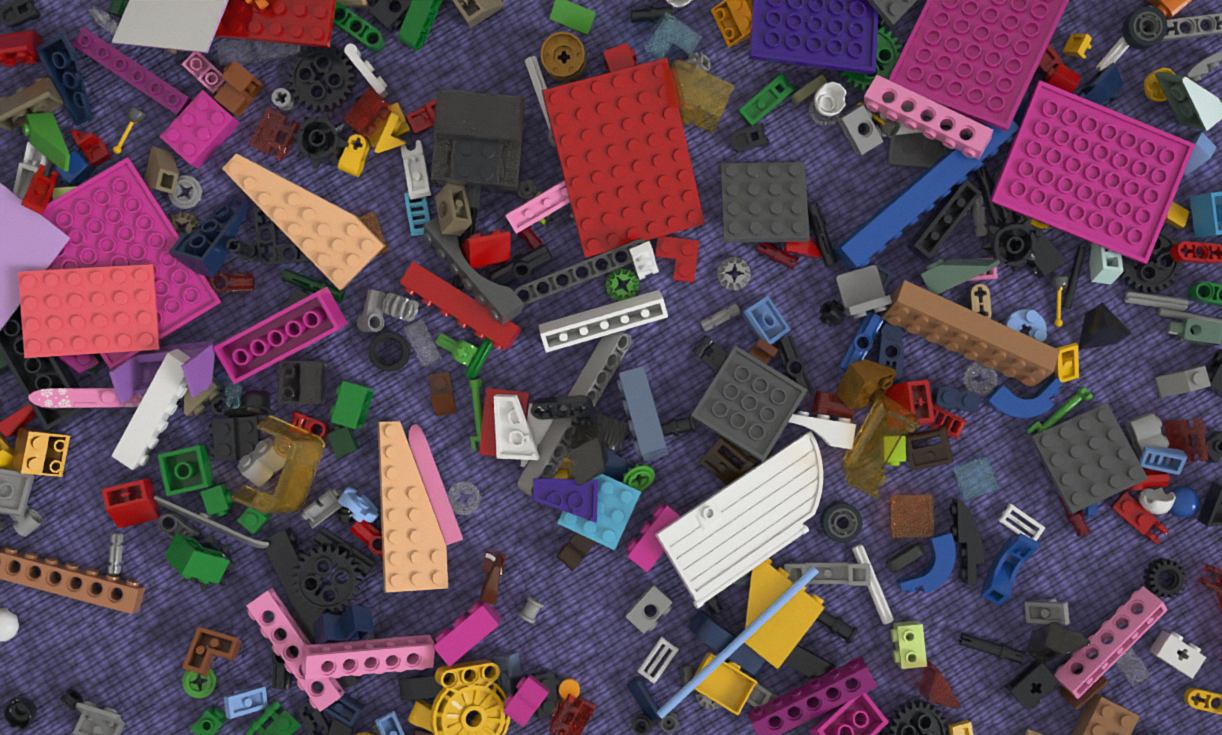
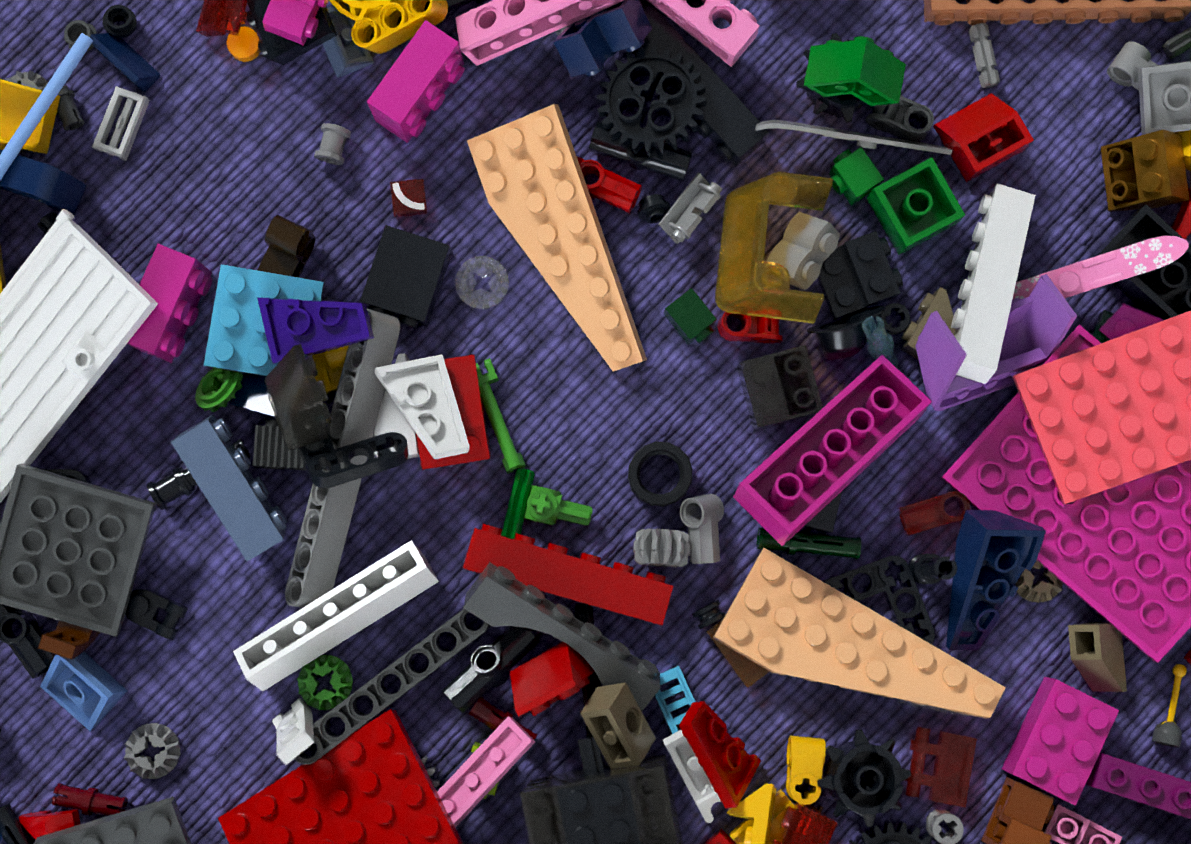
camera: 165 degrees right, 5 degrees down
(195, 193) = (1035, 635): light grey gear -> none
(254, 520) = (791, 158): green brick -> none
(351, 404) = (692, 373): green brick -> none
(361, 506) = (635, 225): light blue plate -> none
(384, 260) = (709, 614): none -> black bush
(399, 177) = (719, 753): none -> red wing
(422, 343) = (613, 502): clear slope -> none
(434, 485) = (533, 289): bright pink piece -> none
(442, 394) = (560, 432): reddish brown slope -> none
(491, 585) = (401, 165): reddish brown slope -> none
(507, 513) = (406, 276): none -> black brick
(527, 194) = (507, 793): dark grey plate -> none
(653, 596) = (154, 213): light grey brick -> none
(683, 252) = (238, 759): red plate -> none
(720, 317) = (155, 674): light grey axle -> none
(722, 465) = (91, 442): dark brown plate -> none

